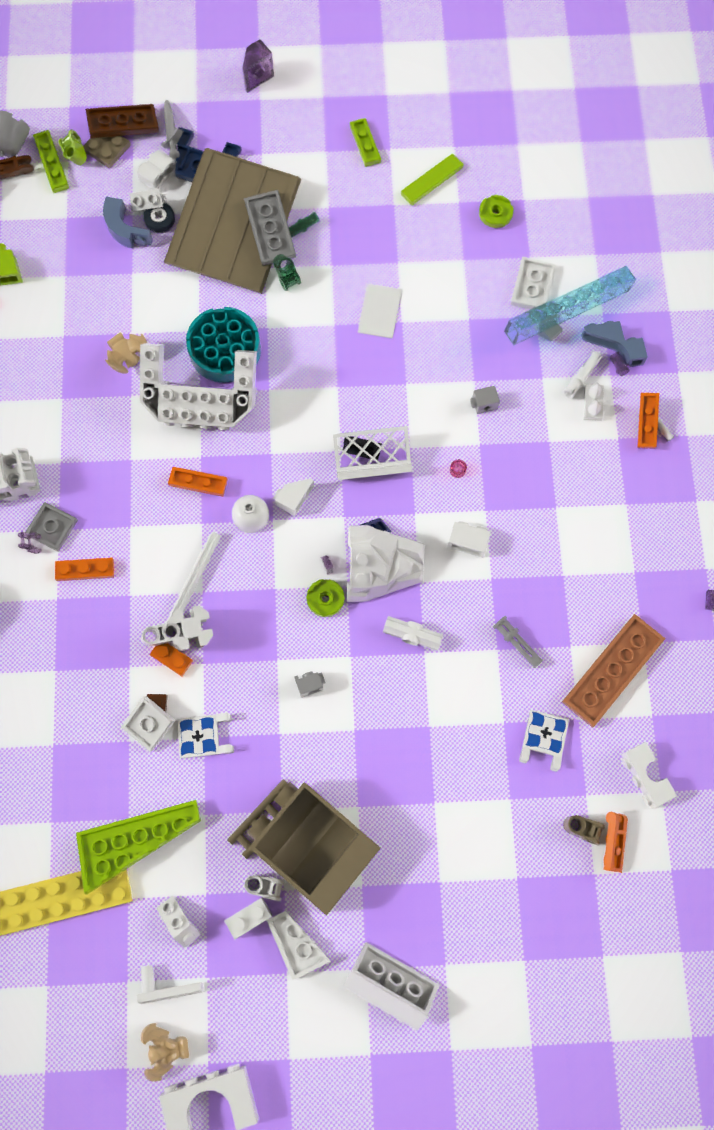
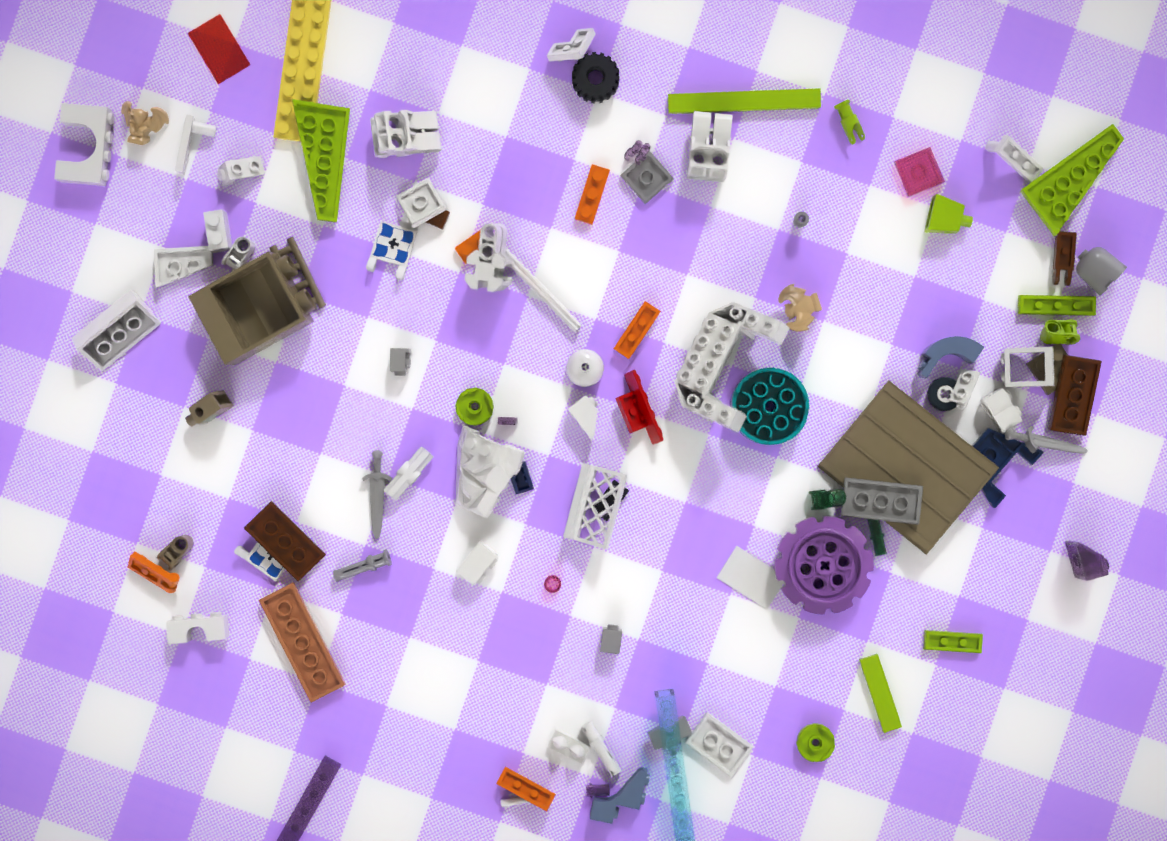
camera: 110 degrees right, 15 degrees up
(45, 378) = (805, 218): none -> light grey pin
(57, 1000) = (219, 48): none -> clear red piece
(83, 766) = (412, 133): none -> white connector
(105, 142) = (1049, 367): none -> white window
(269, 453) = (637, 410): none -> red bracket
(344, 253) = (847, 543): none -> medium lavender piece
(426, 847) = (208, 408): none -> dark tan torso
(443, 657) = (377, 486): none -> light grey sword
(527, 725) = (284, 541): none -> reddish brown tile

